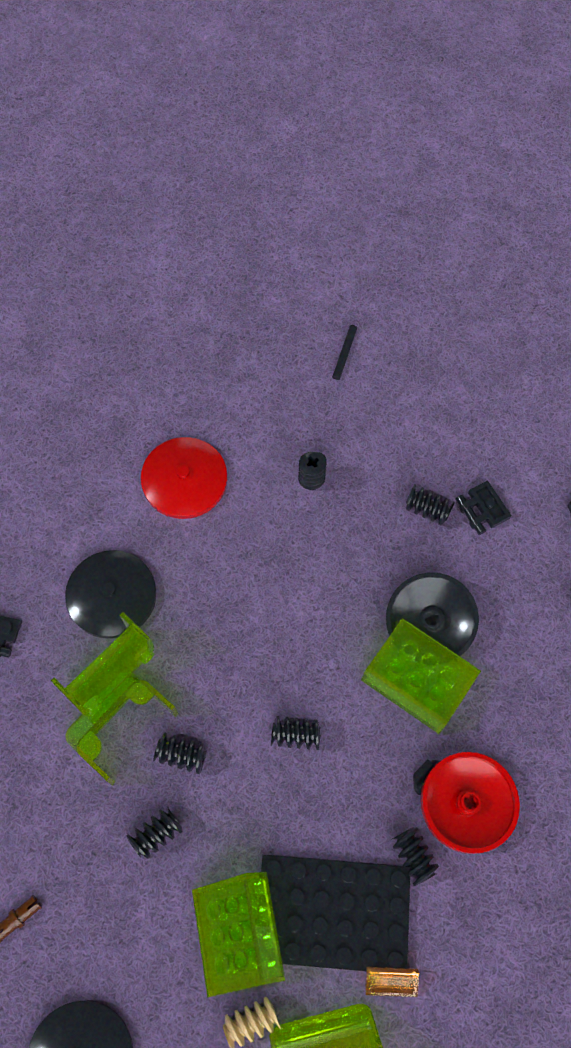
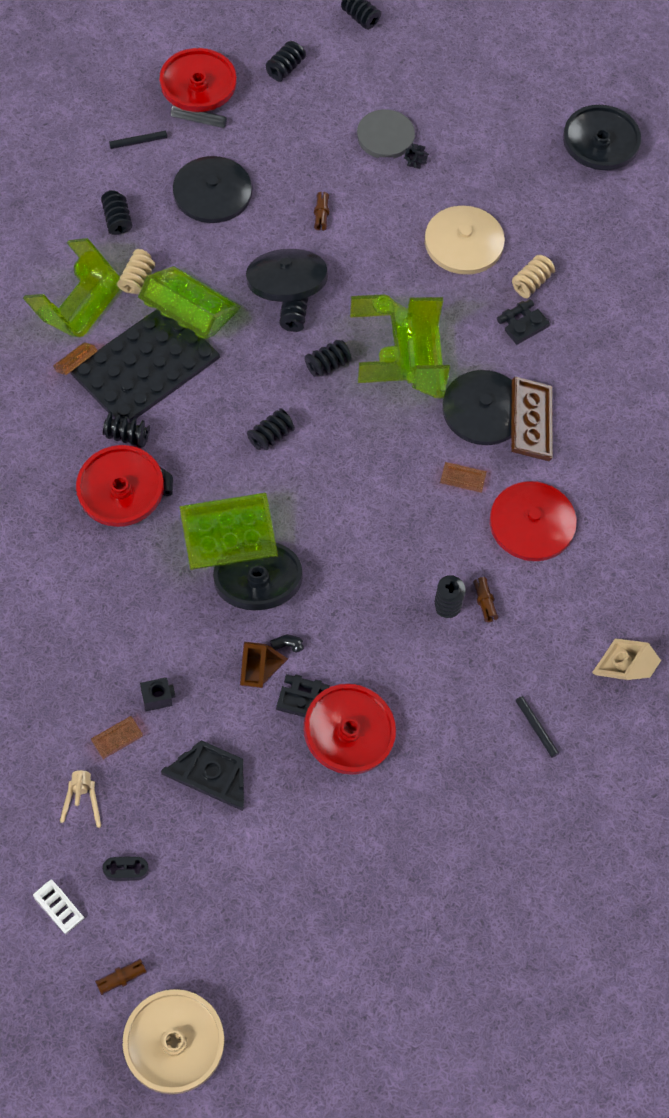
camera: 130 degrees right, 5 degrees down
(91, 547) = (532, 419): none -> tile
(126, 872) = (286, 275): none -> black dish
(192, 555) = (463, 477): none -> clear orange tile
(245, 331) = (628, 660): none -> tan slope
(284, 454) = (485, 599): none -> reddish brown pin
(428, 505) = (343, 655): black piece -> none
(452, 555) = (288, 640): none -> black arm
(477, 452) = (349, 729): none -> red dish
(493, 559) = (259, 664): none -> reddish brown slope

